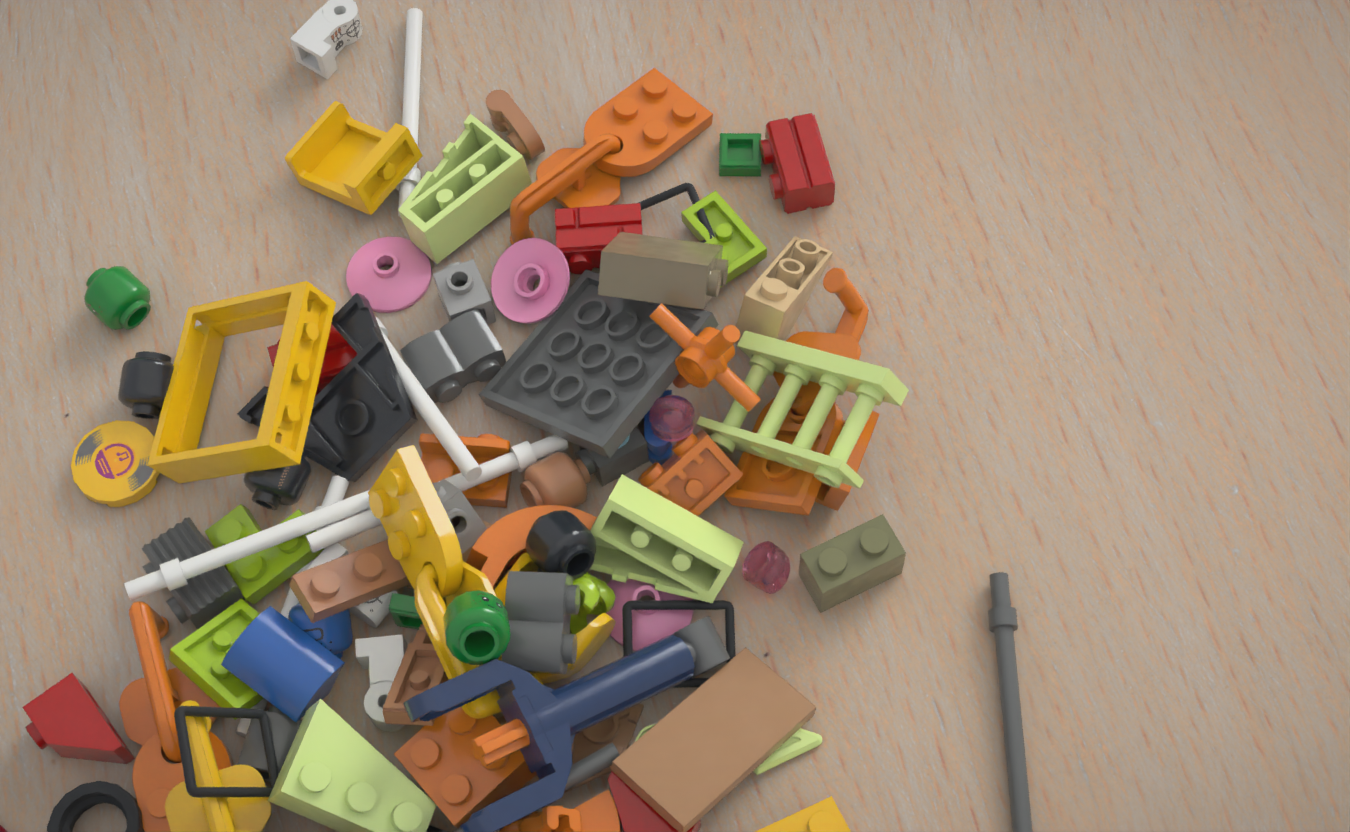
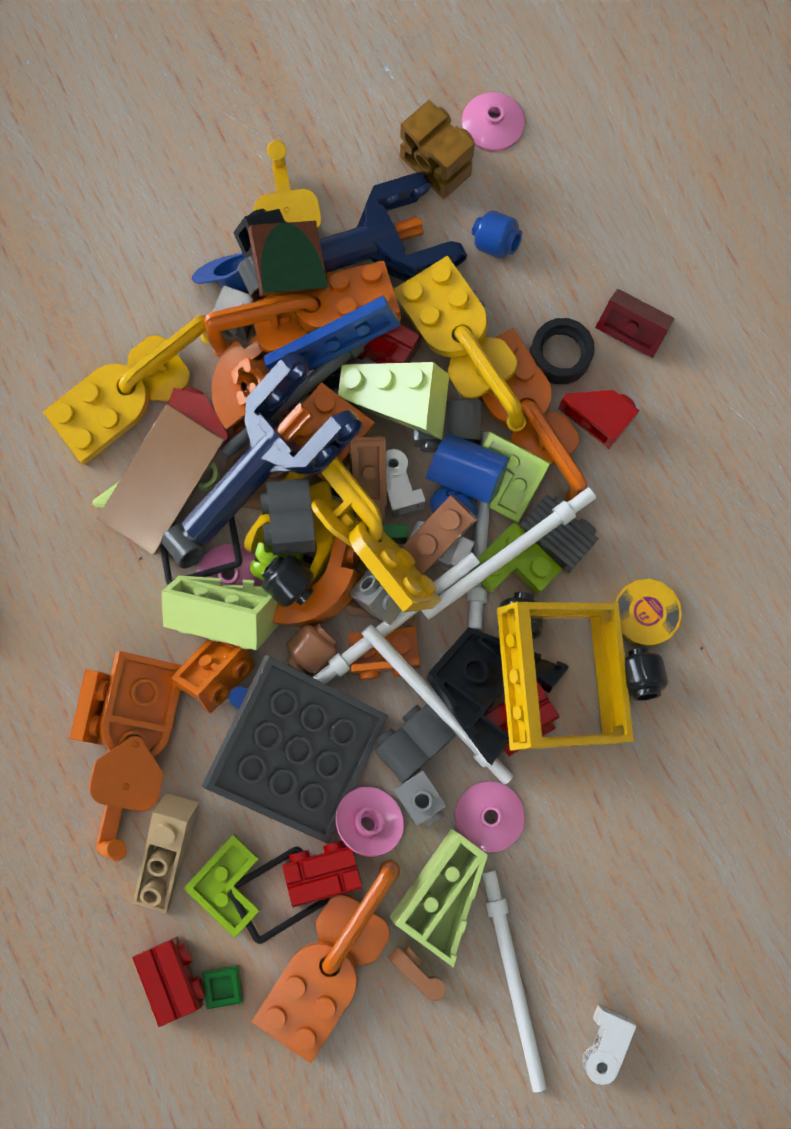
camera: 165 degrees right, 15 degrees up
(117, 298) = (696, 747): green head -> none
(186, 757) = (513, 390): black piece -> none
(352, 159) = (545, 912): yellow panel -> none
(476, 627) = (323, 485): green head -> none
(662, 270) = (254, 830): dark tan brick -> none
(672, 418) = (226, 705): clear pink tile -> none
(705, 357) = (203, 749): orange bar -> none
(766, 567) = (146, 616): clear pink tile -> none
(800, 366) = (101, 750): yellowish green fence -> none
(851, 563) = (82, 627): olive brick -> none

